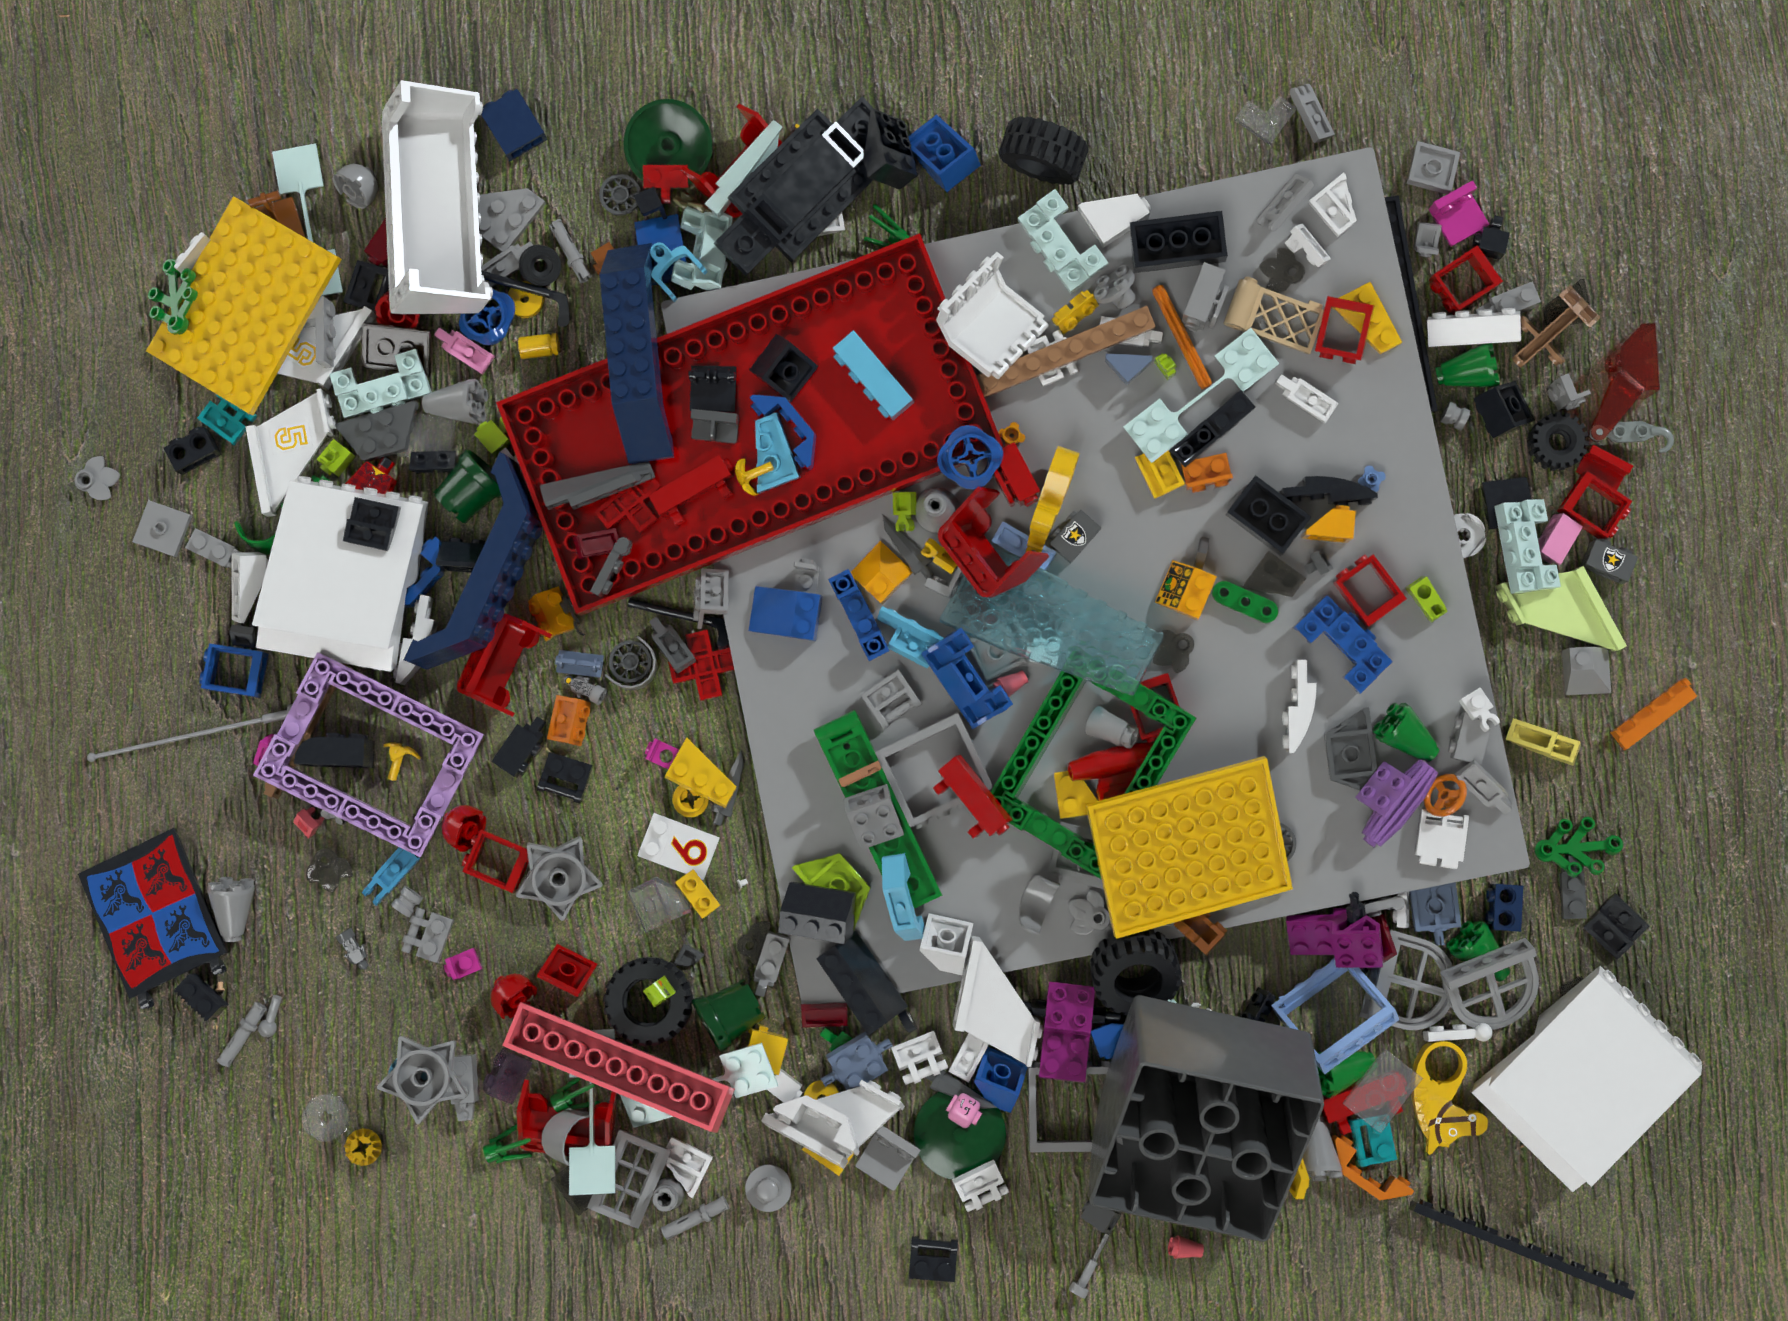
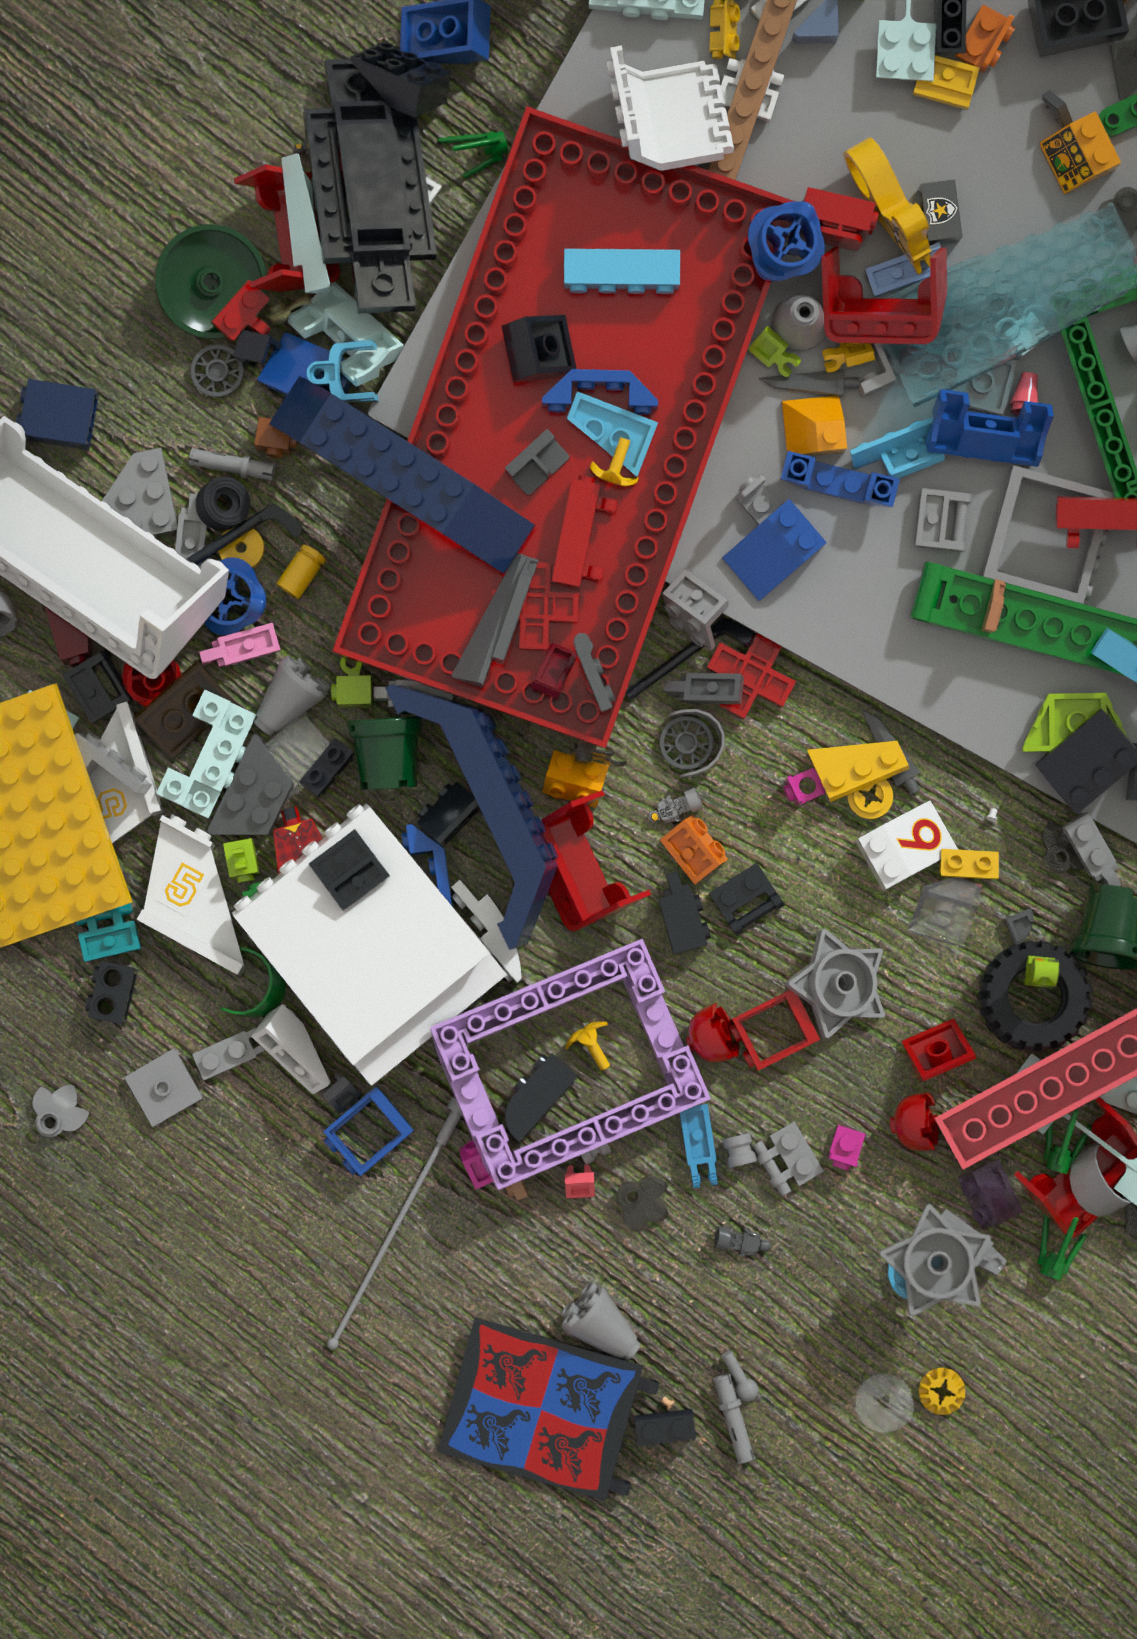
camera: 50 degrees left, 0 degrees up
(579, 663) = (647, 792): sand blue hinge -> none
(713, 388) = (498, 433): black hinge -> none
(873, 817) = (1045, 627): light grey bracket -> none
(1012, 429) = (789, 182): light orange plate -> none

